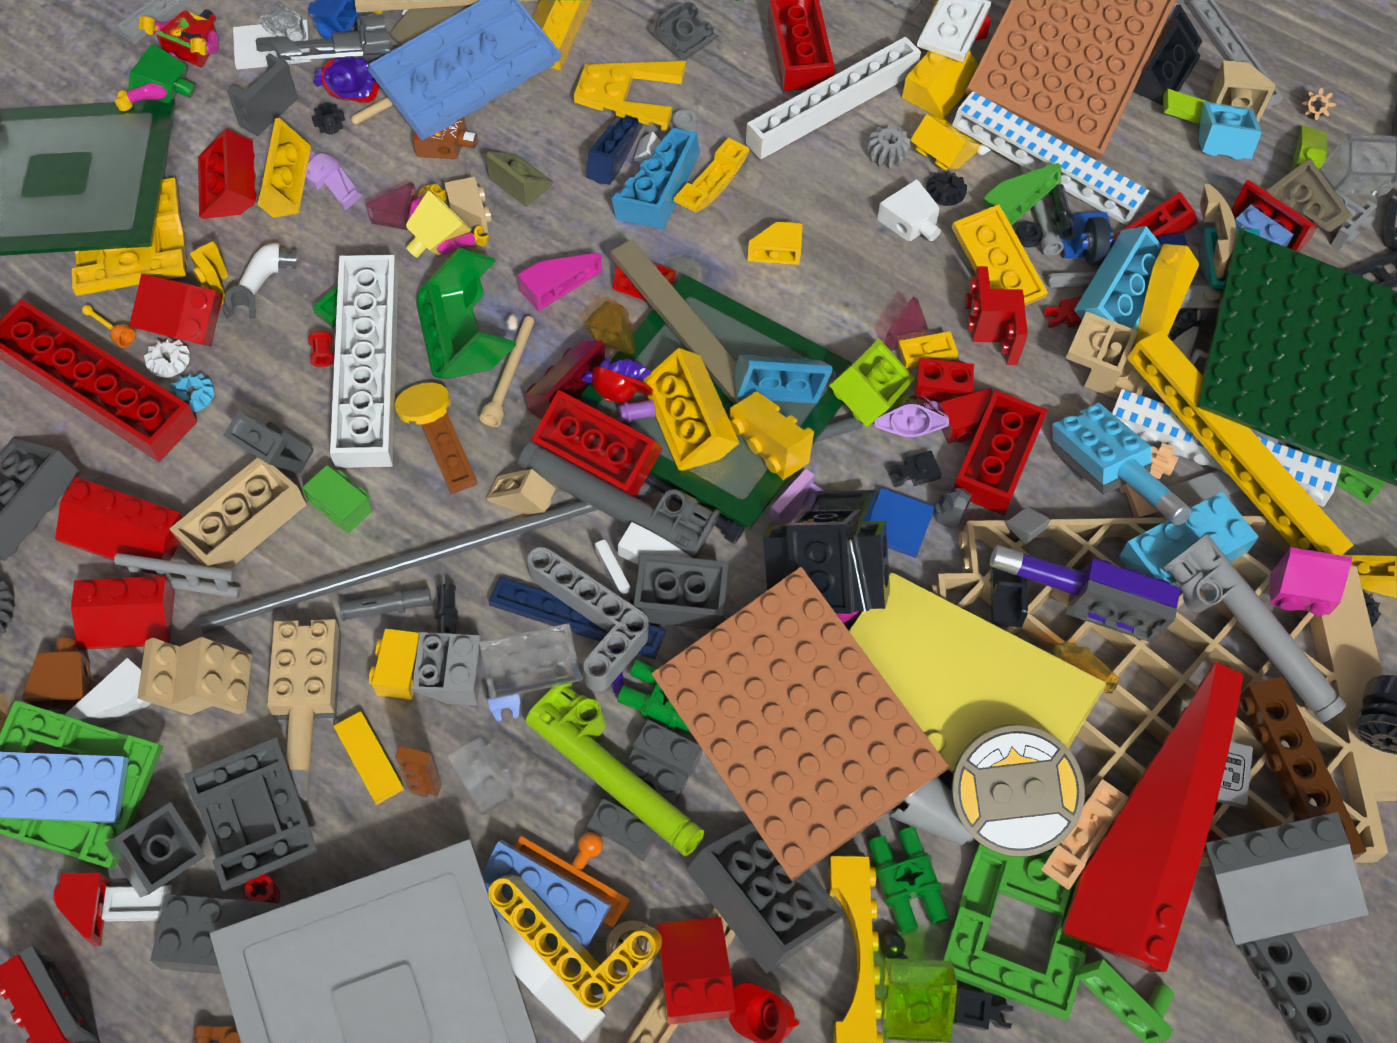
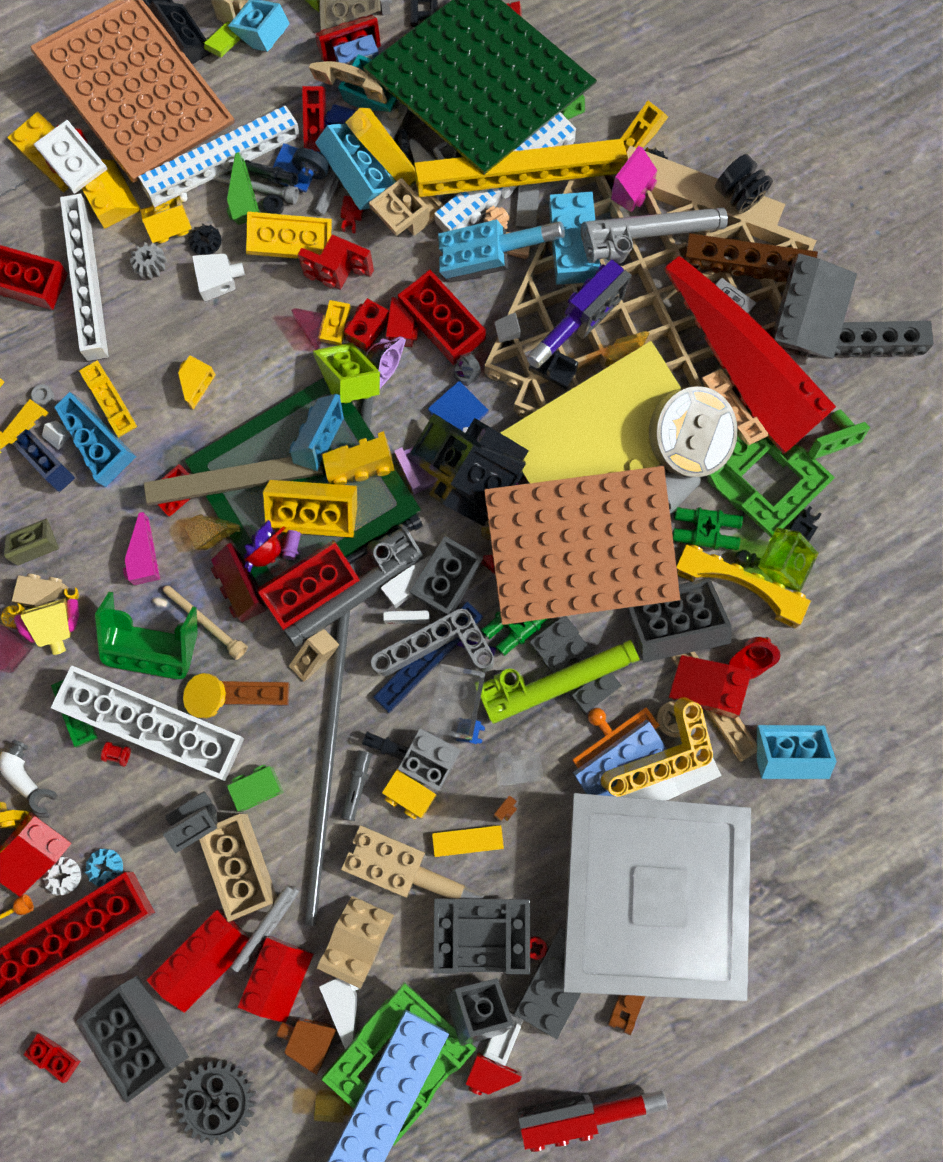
camera: 60 degrees left, 15 degrees up
(918, 468) = (424, 376): black plate -> none

